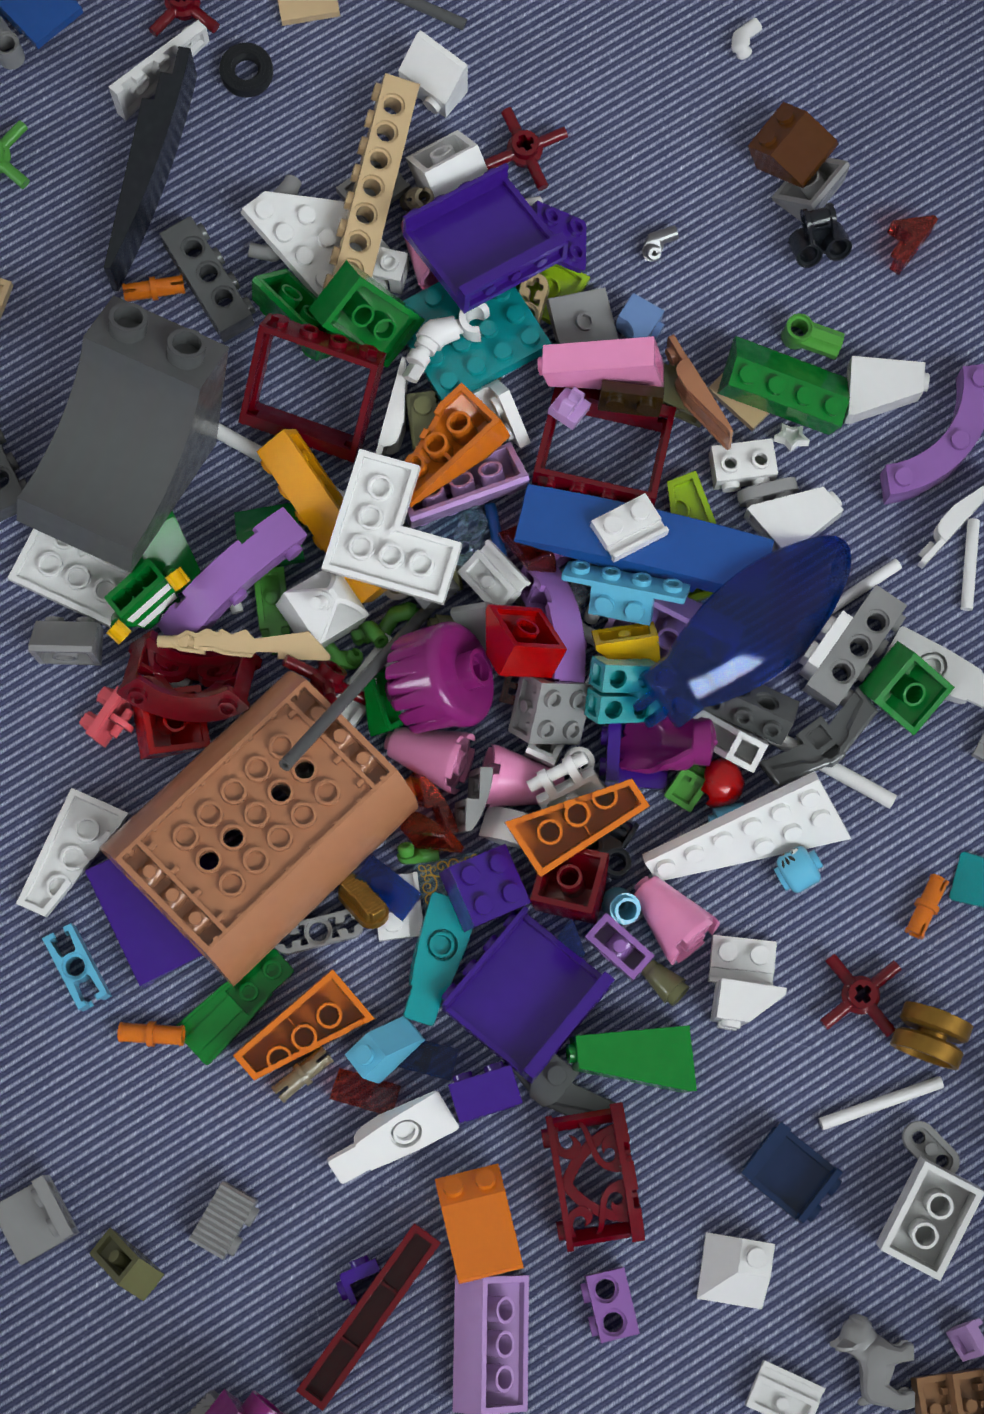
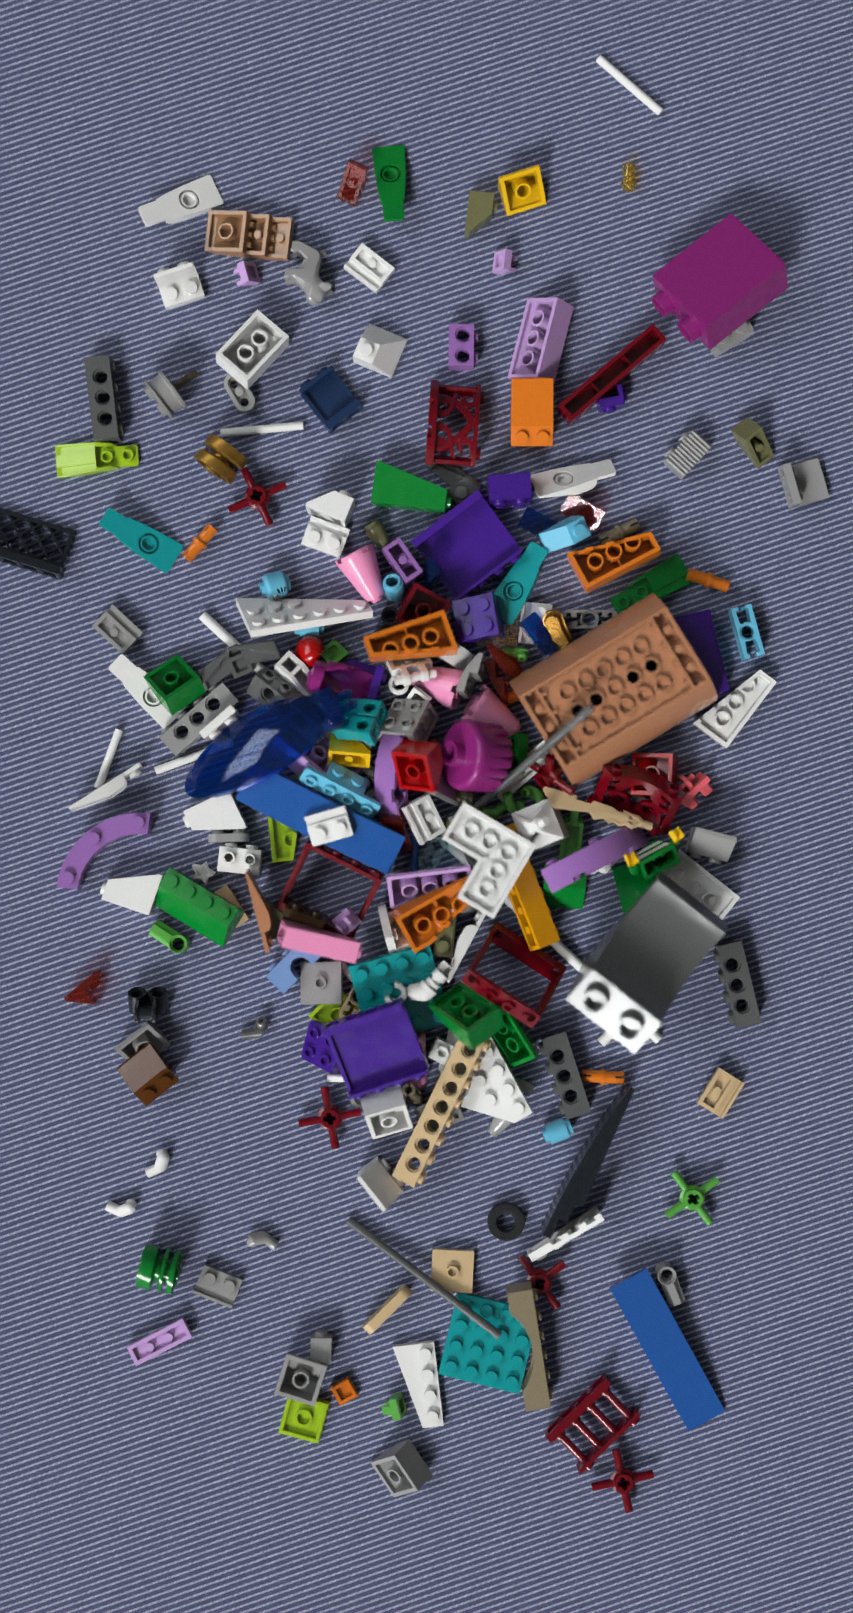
camera: 170 degrees left, 10 degrees up
(201, 201) = (557, 1131): none -> medium azure brick

